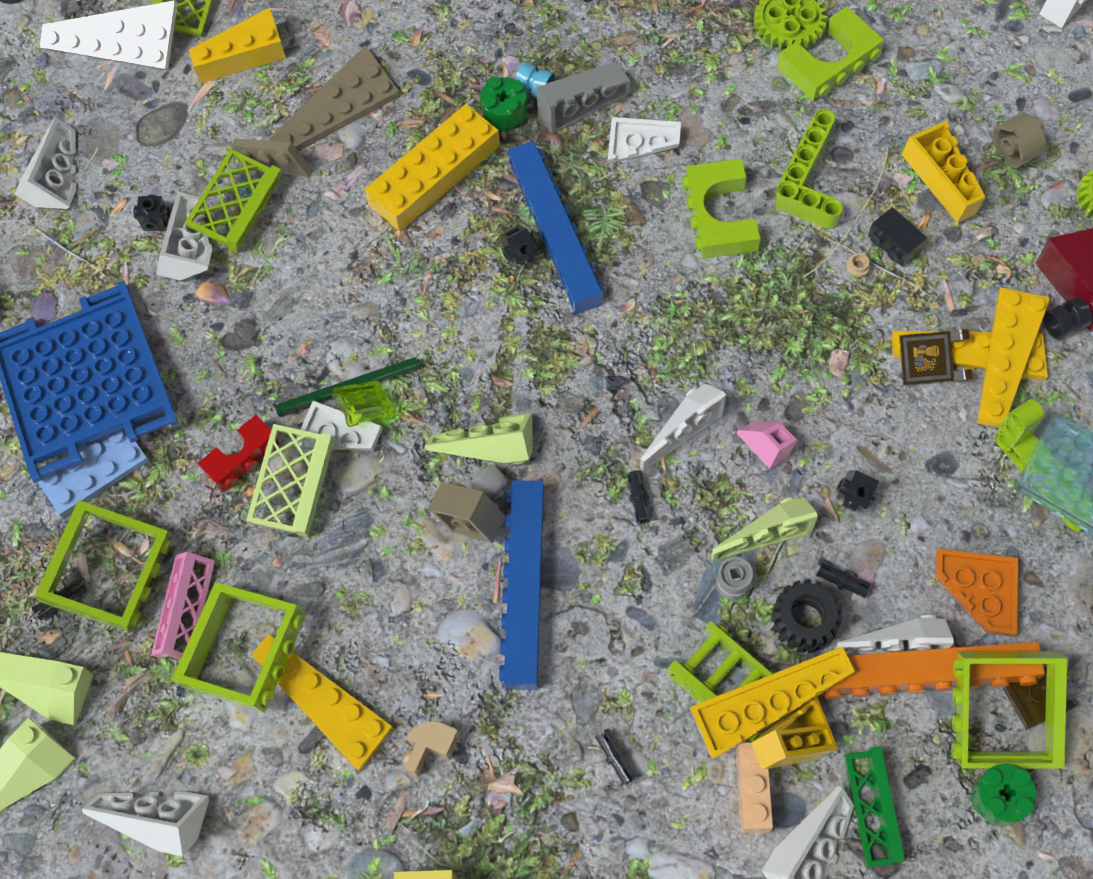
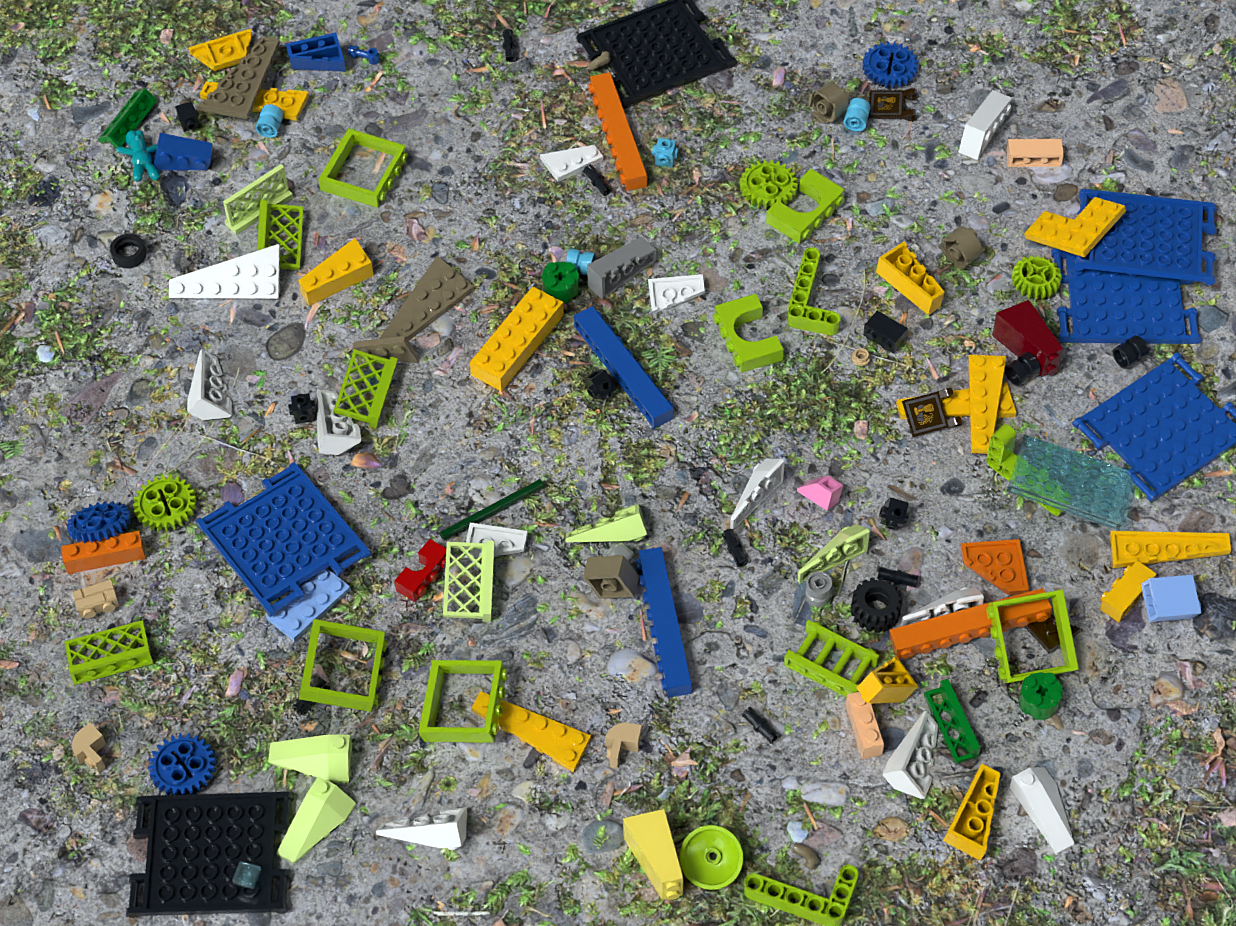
camera: 15 degrees left, 10 degrees down
(174, 603) = (404, 681): bright pink fence -> none
(360, 397) = (508, 512): clear neon green plate -> none
(755, 706) = (848, 670): yellow wing -> none

